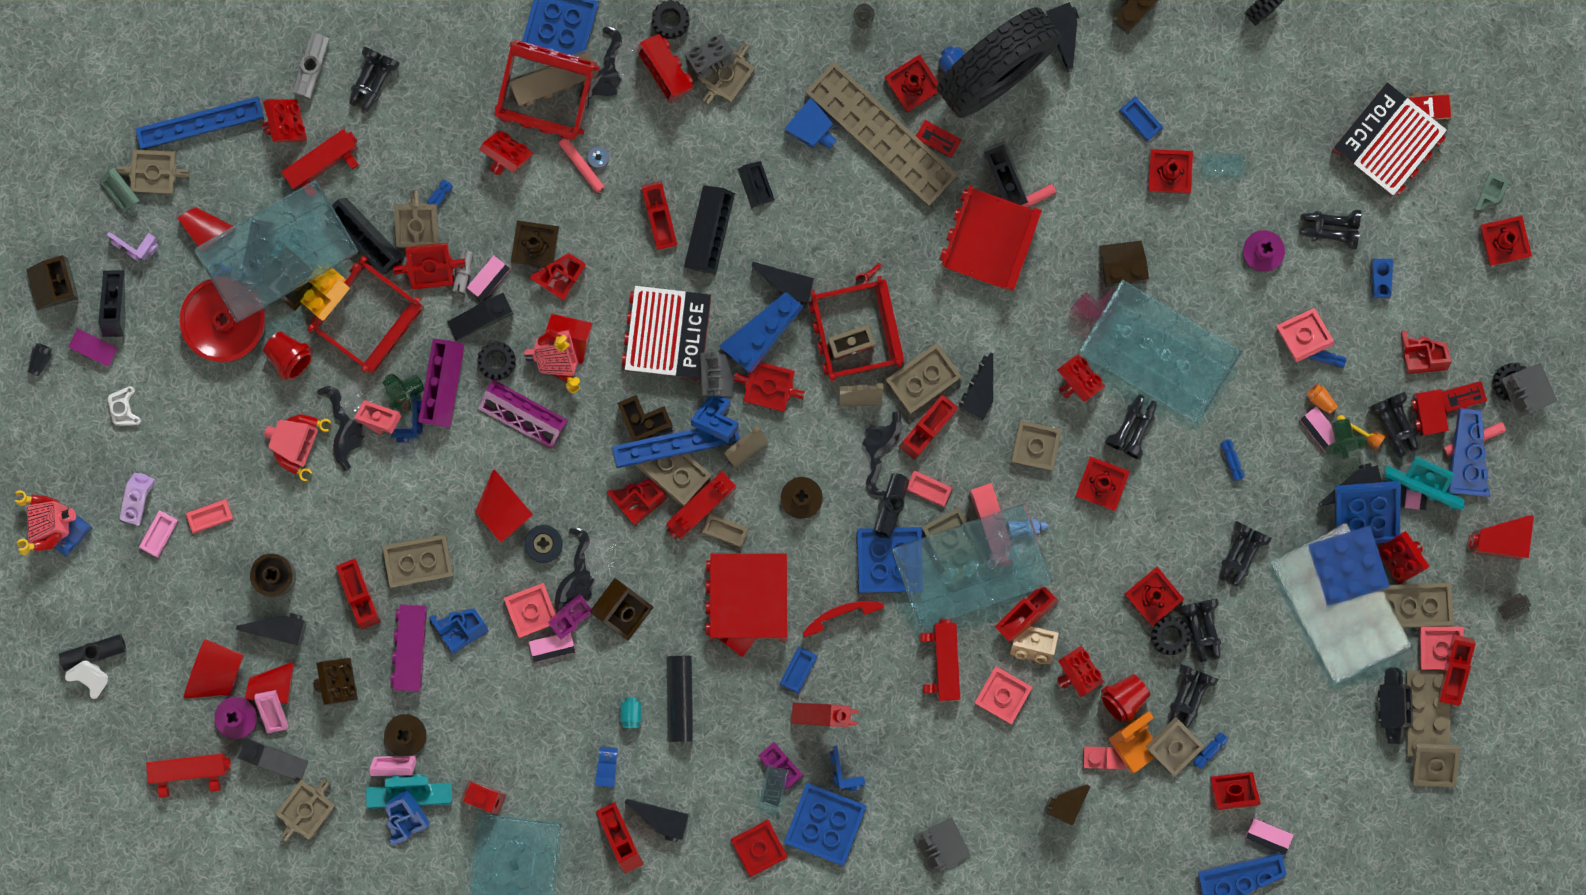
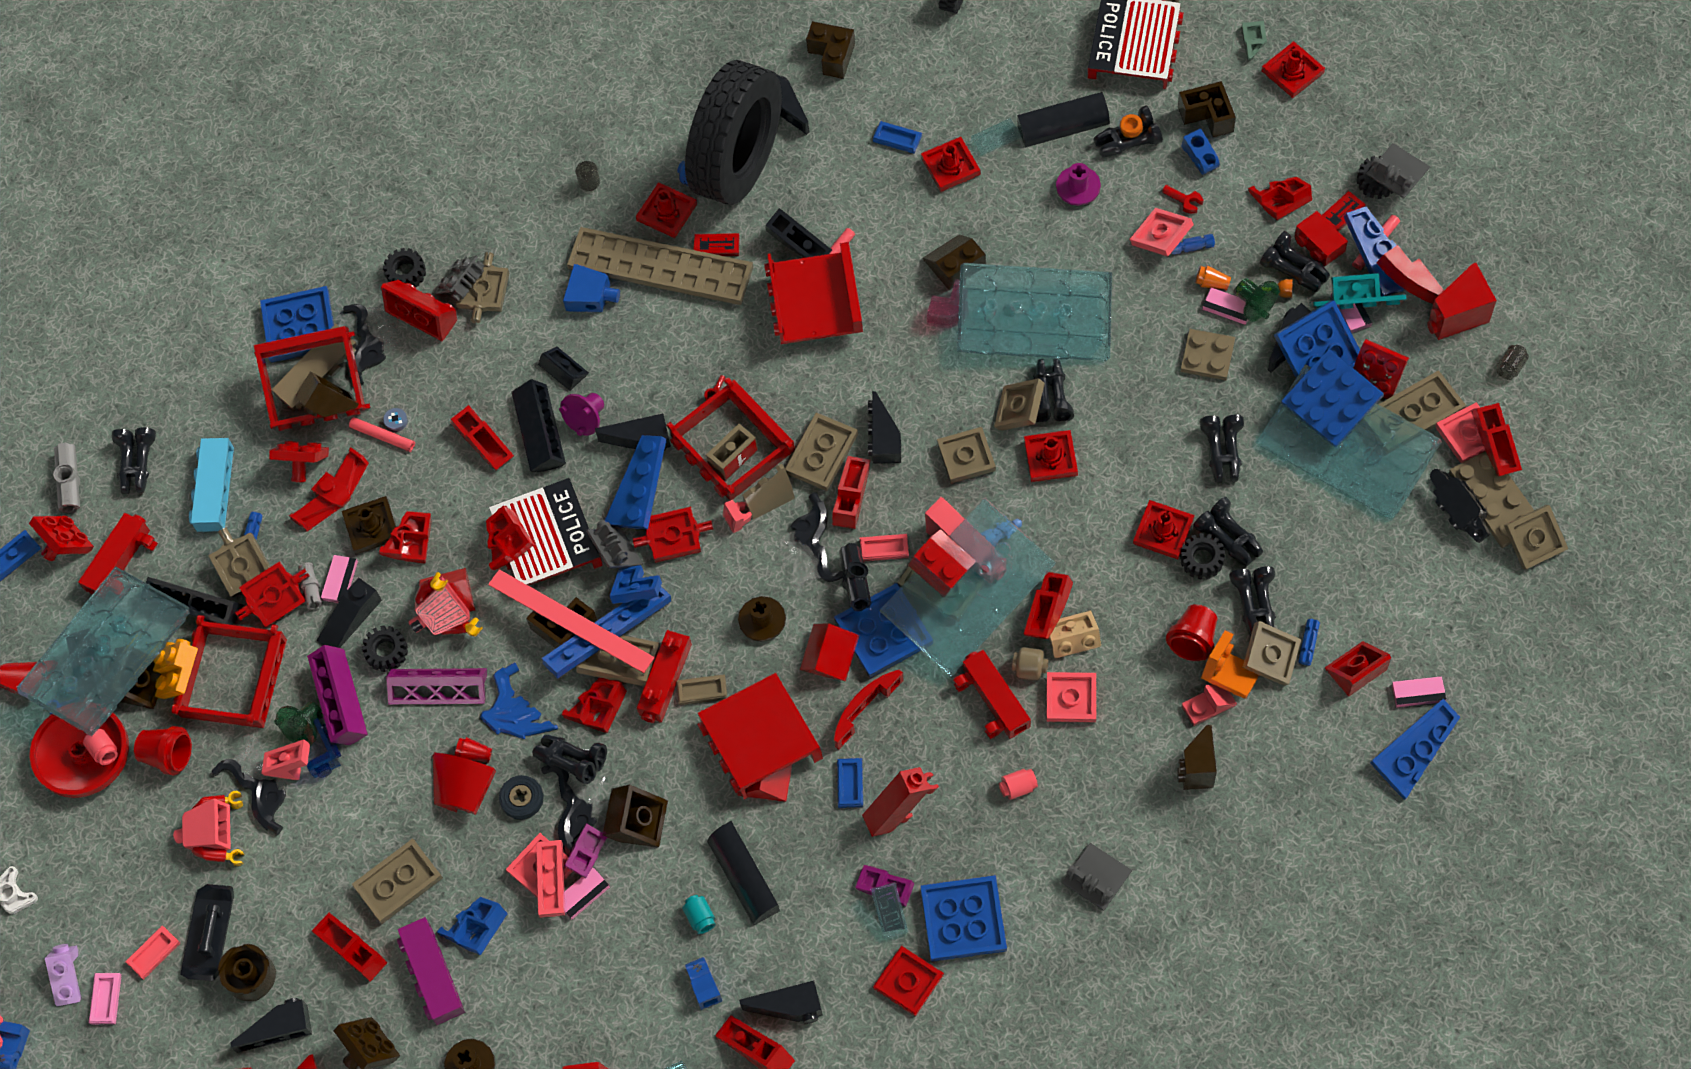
camera: 20 degrees left, 20 degrees down
(239, 332) = (101, 747): none -> coral brick
(256, 523) = (207, 932): none -> black piece
(424, 138) = (212, 484): none -> medium azure brick
(518, 196) = (332, 491): none -> red plate
(524, 485) = (473, 750): none -> red cone
(533, 627) = (550, 878): none -> coral plate
(549, 115) = (324, 397): none -> dark brown slope
(568, 469) = (513, 714): none -> blue animal
(591, 519) = (553, 754): none -> black piece
(635, 322) = (506, 537): none -> red slope
(650, 425) = (571, 621): none -> coral piece
(746, 447) = (680, 597): dark tan slope -> none
(750, 239) = (582, 412): none -> magenta piece
(824, 400) = (734, 517): none -> coral tile
(837, 556) = (829, 651): none -> red slope
(852, 783) = (967, 862): blue bracket -> none
(923, 742) = (1018, 783): none -> coral brick
(961, 544) = (941, 562): none -> red slope
(986, 651) = (1029, 663): none -> dark tan head
(1079, 672) = (1133, 633): red plate -> none
(1080, 379) = (972, 373): red plate -> none
(1101, 428) = (1019, 404): none -> dark tan plate
(1232, 460) = (1162, 373): blue axle -> none
(1278, 463) = (1208, 354): none -> dark tan plate
(1287, 182) = (1063, 119): none -> black brick
(1337, 223) = (1131, 126): none -> orange tile
(1343, 310) = (1184, 199): none -> red bar
(1415, 237) = (1208, 104): none -> dark brown brick
(1480, 489) = (1411, 276): none -> slope

